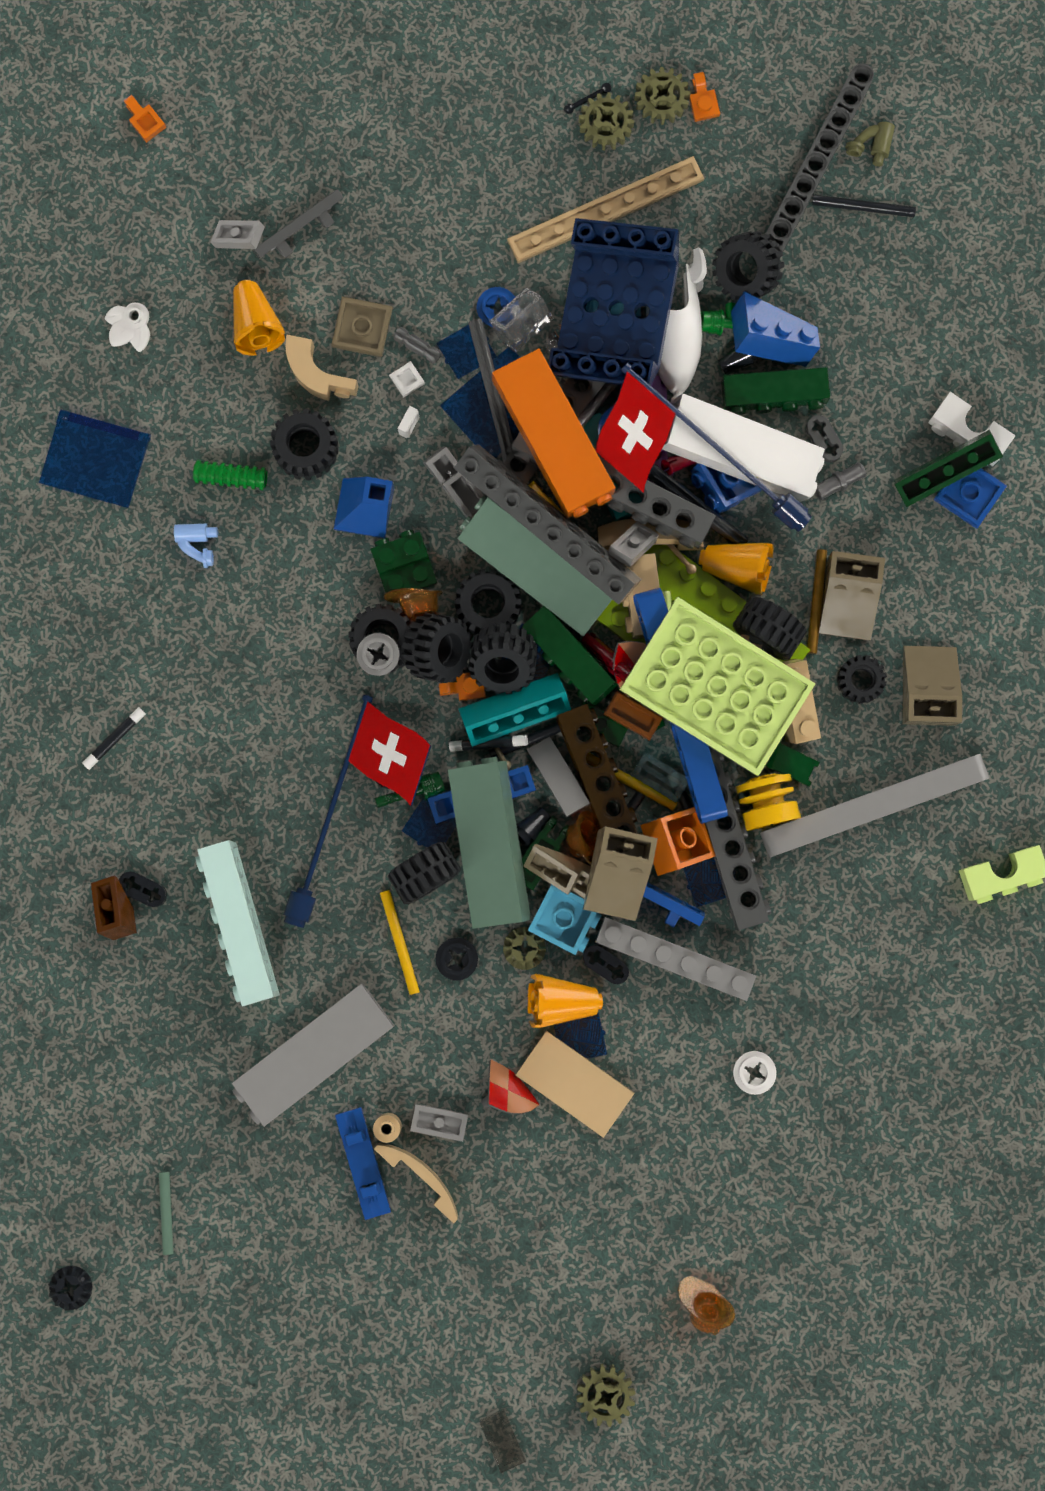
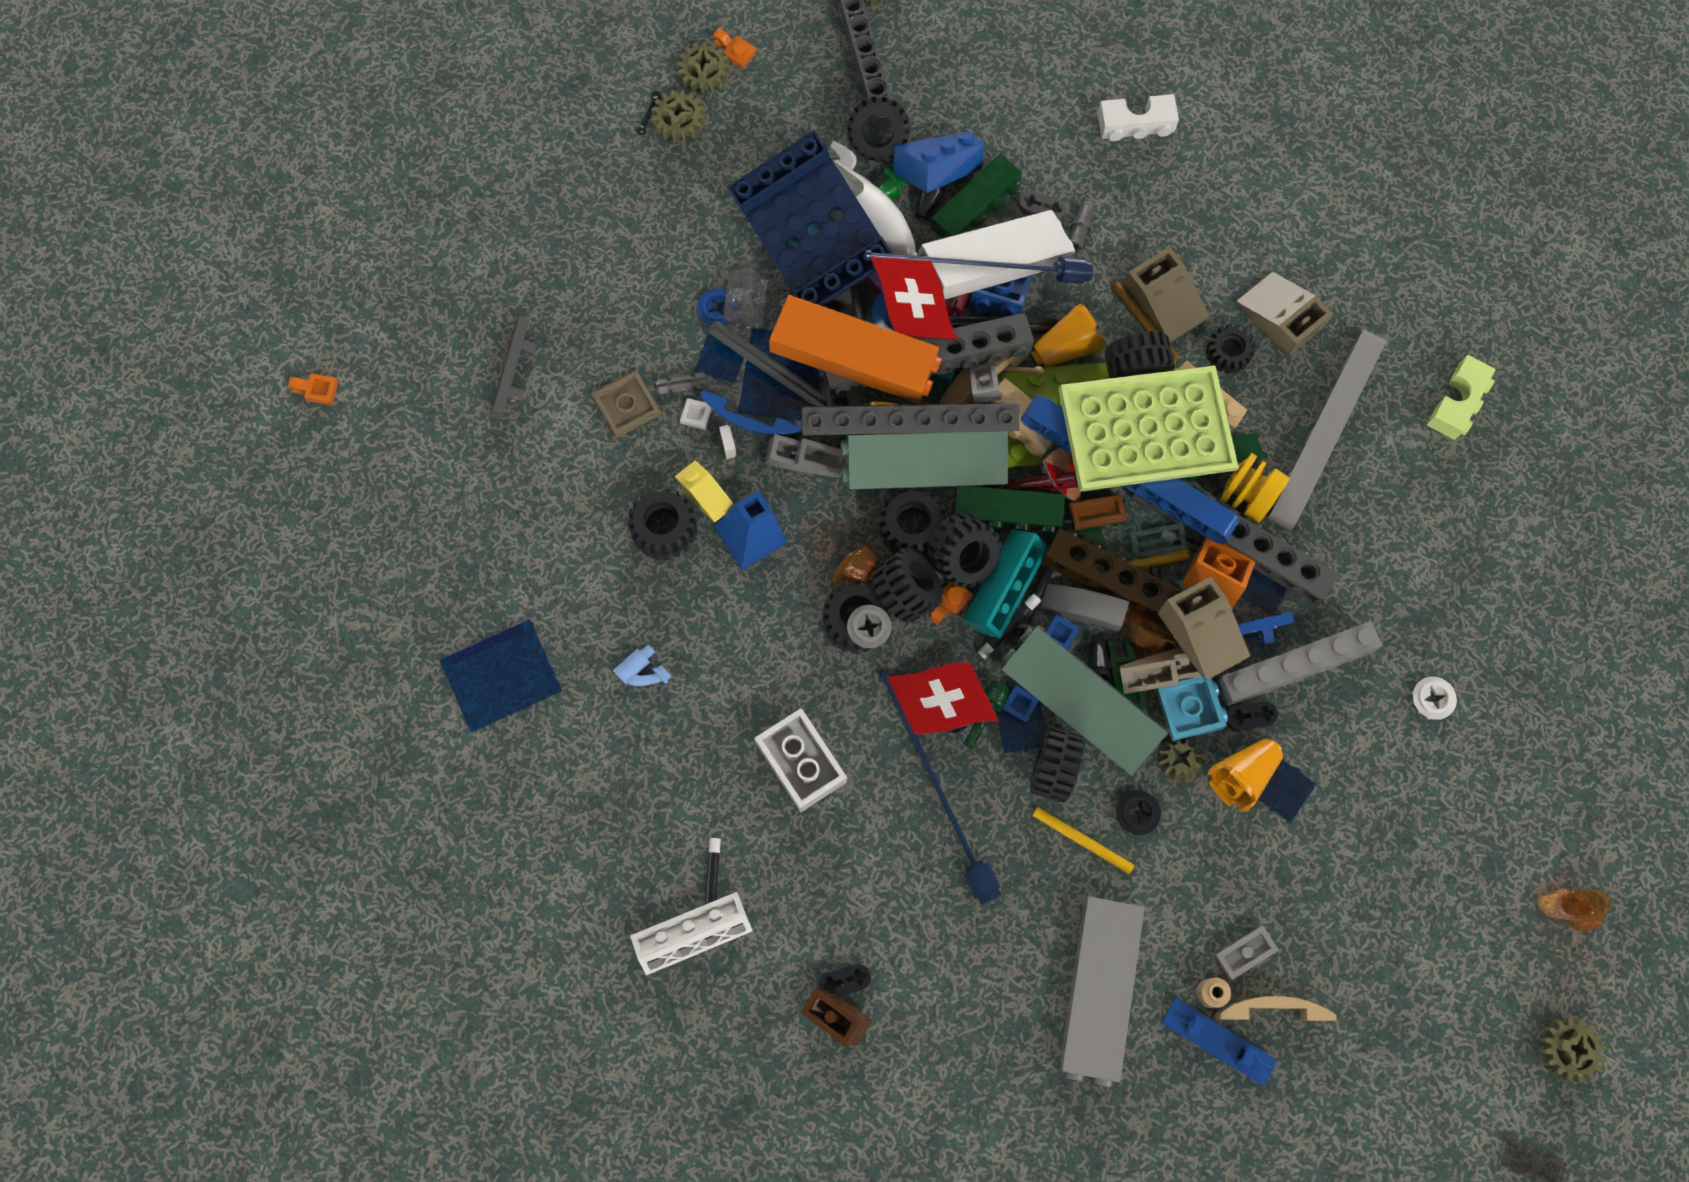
camera: 45 degrees left, 10 degrees down
(65, 762) = (689, 931): none -> white fence
(126, 329) = (439, 555): white plate -> none
(229, 475) = (623, 596): green piece -> none
(237, 234) = (468, 412): light grey plate -> none
(237, 922) = (951, 936): light aqua brick -> none
(247, 707) = (800, 760): none -> white brick
(254, 320) = (539, 463): light orange cone -> none
(311, 378) = (621, 470): tan arch -> none
(355, 446) = (704, 491): none -> light yellow slope
(403, 562) = (818, 549): dark green plate -> none
(424, 388) = (718, 405): none -> blue slope
(507, 1091) = (1275, 880): shield -> none
(575, 1084) = (1315, 827): tan tile -> none
(607, 208) = (739, 164): tan tile -> none
(861, 205) = (918, 30): black bar -> none
(948, 468) = (1152, 150): dark green brick -> none
(971, 496) = (1177, 161): blue tile -> none

